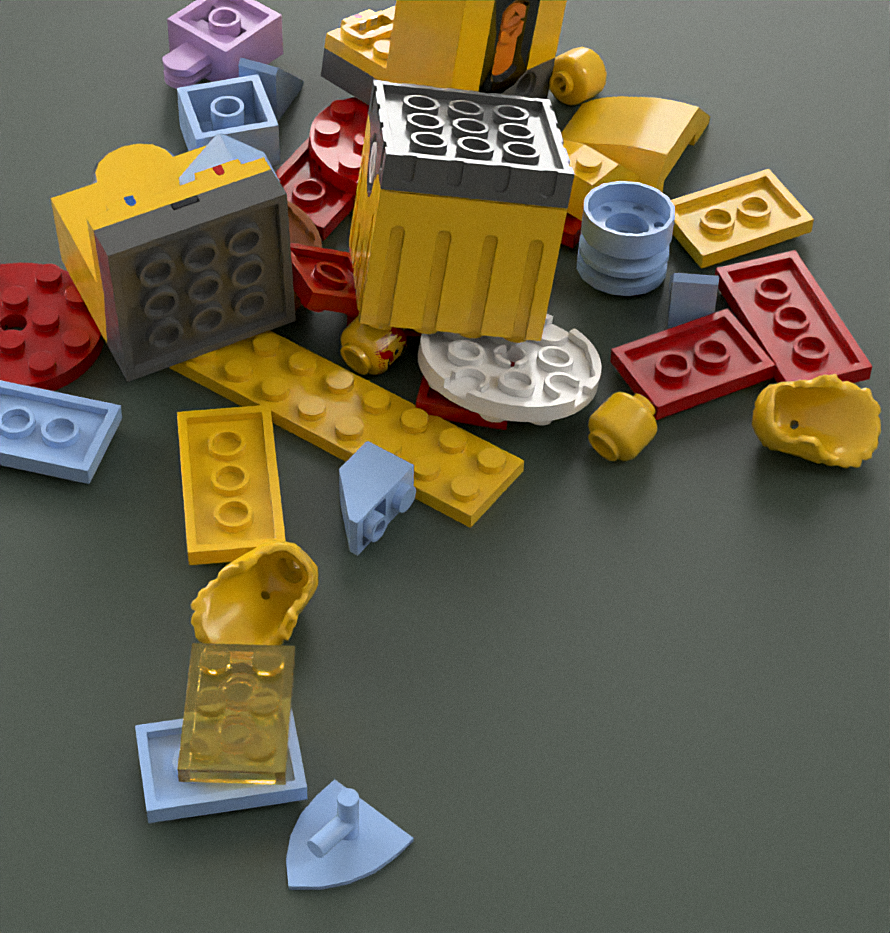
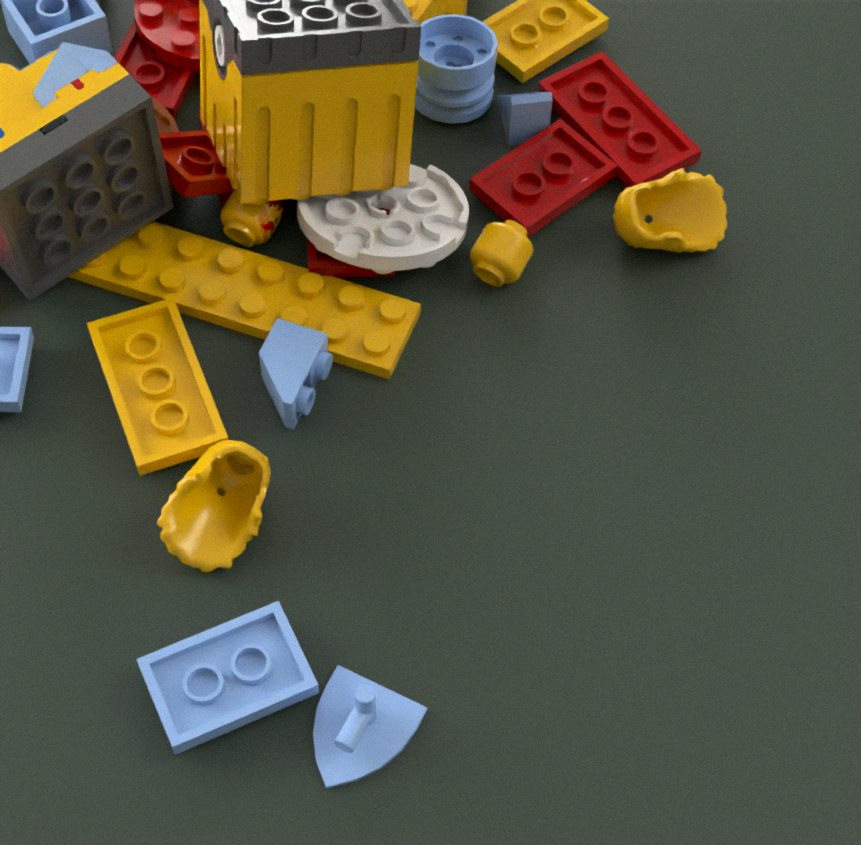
camera: 15 degrees left, 10 degrees up
(237, 714) = (232, 626): clear yellow plate -> none

